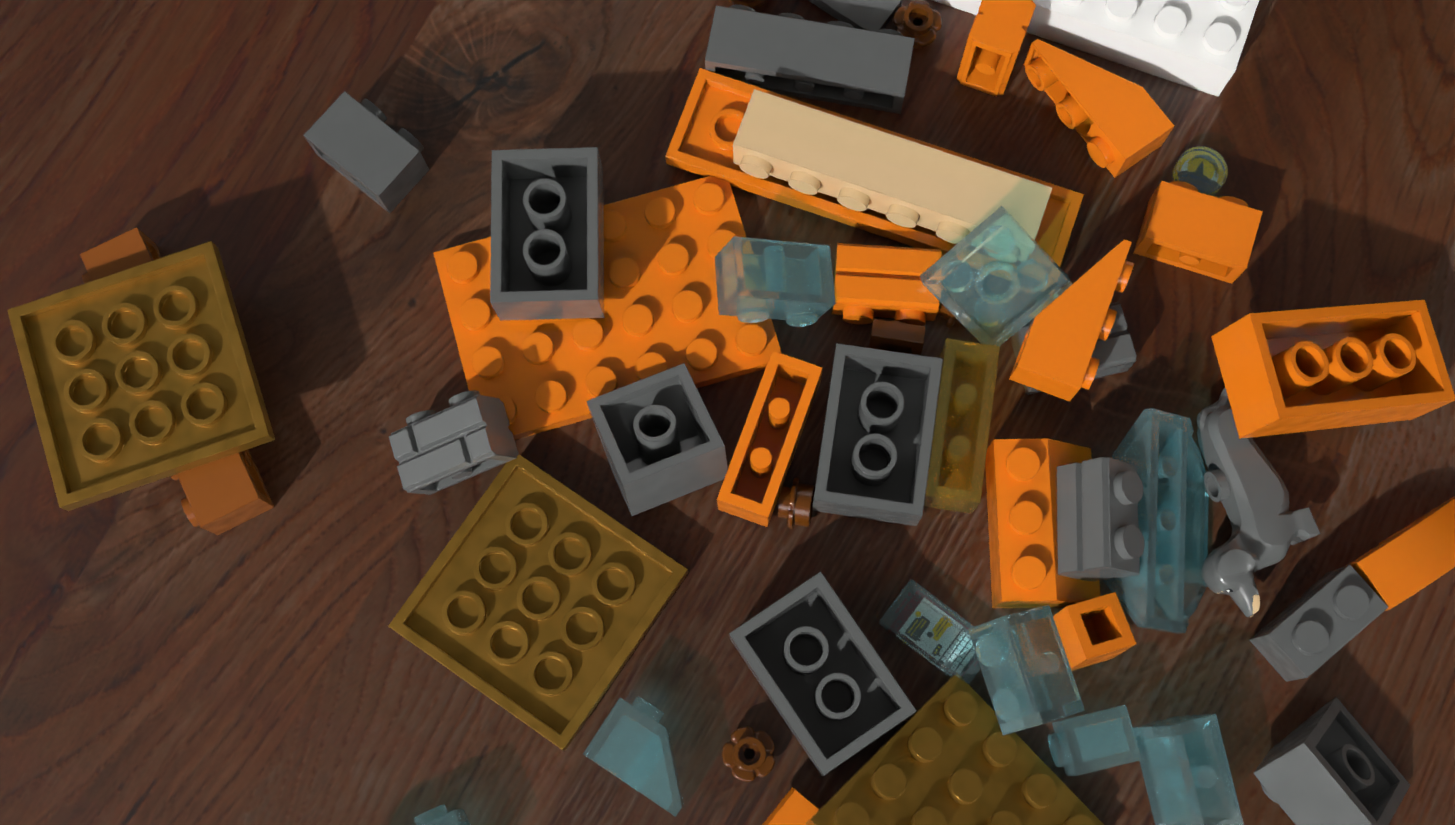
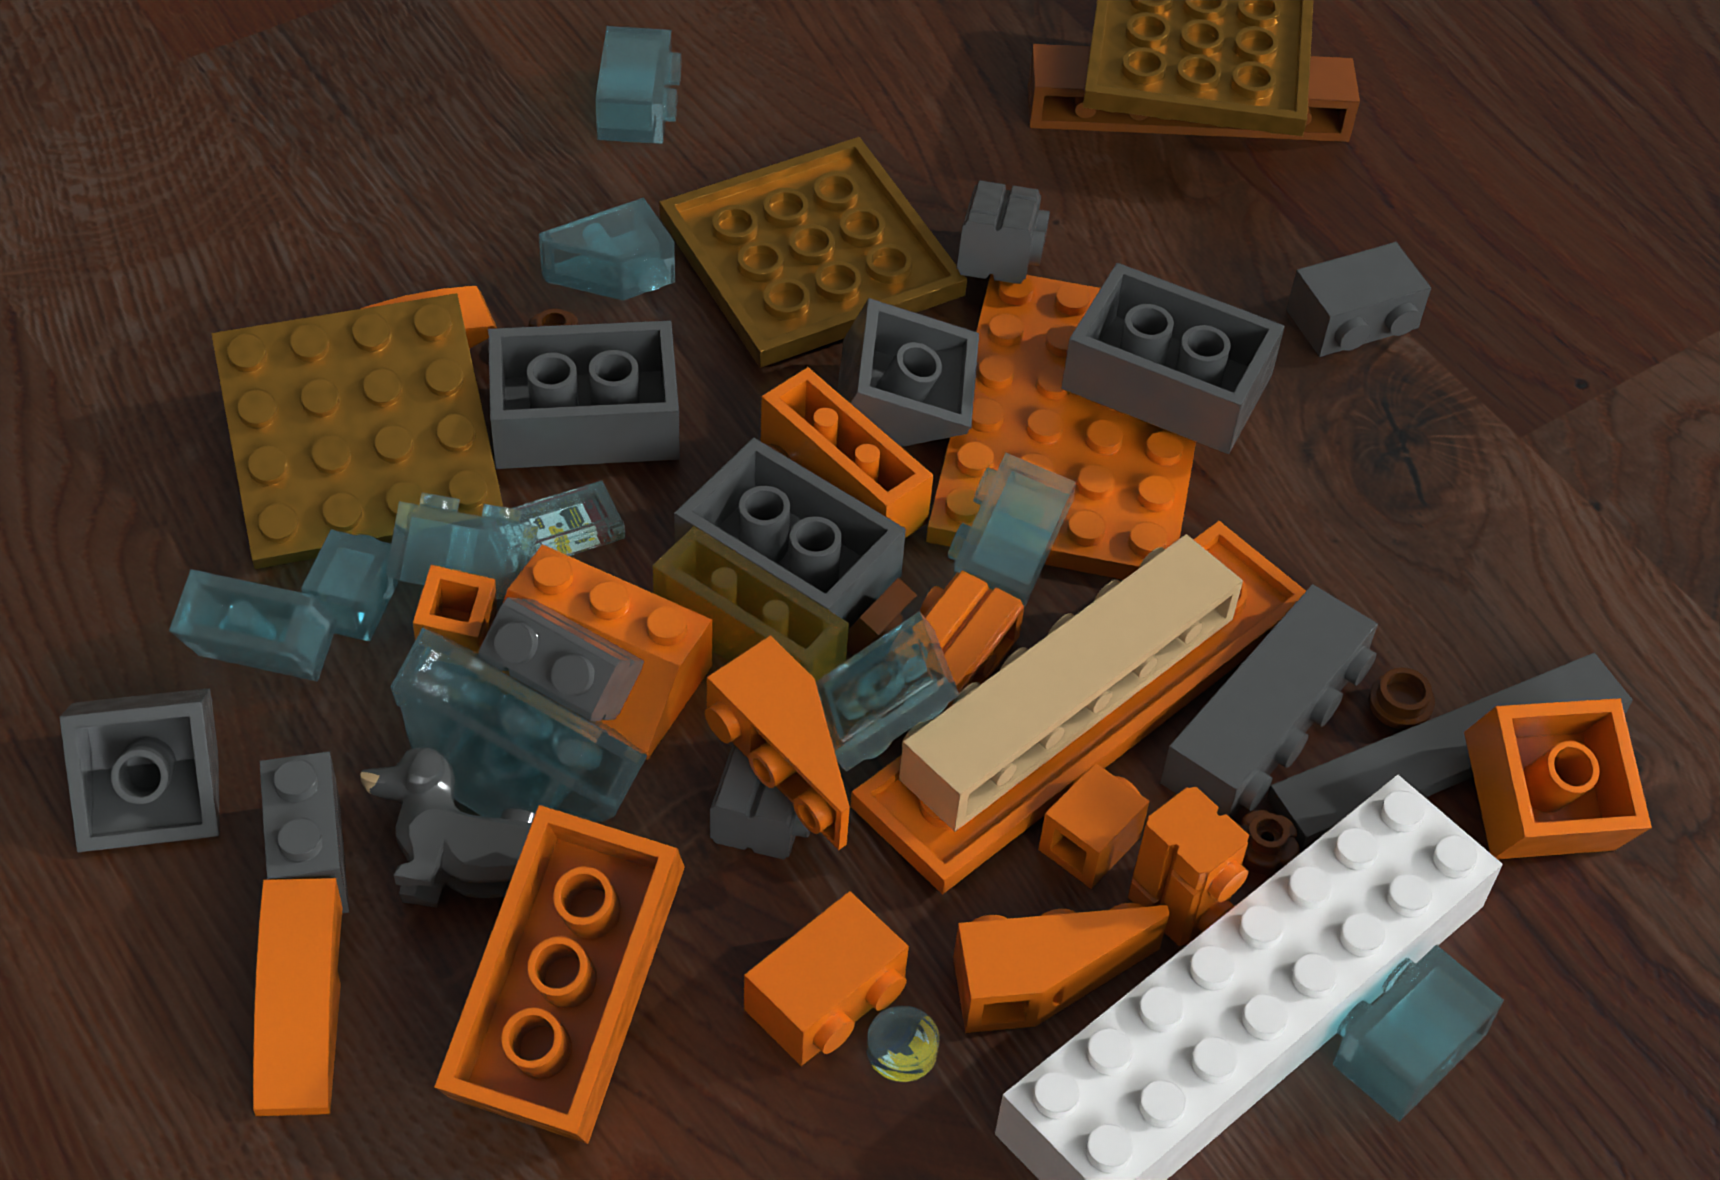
camera: 110 degrees right, 25 degrees down
(978, 124) = (1093, 825): none -> orange brick

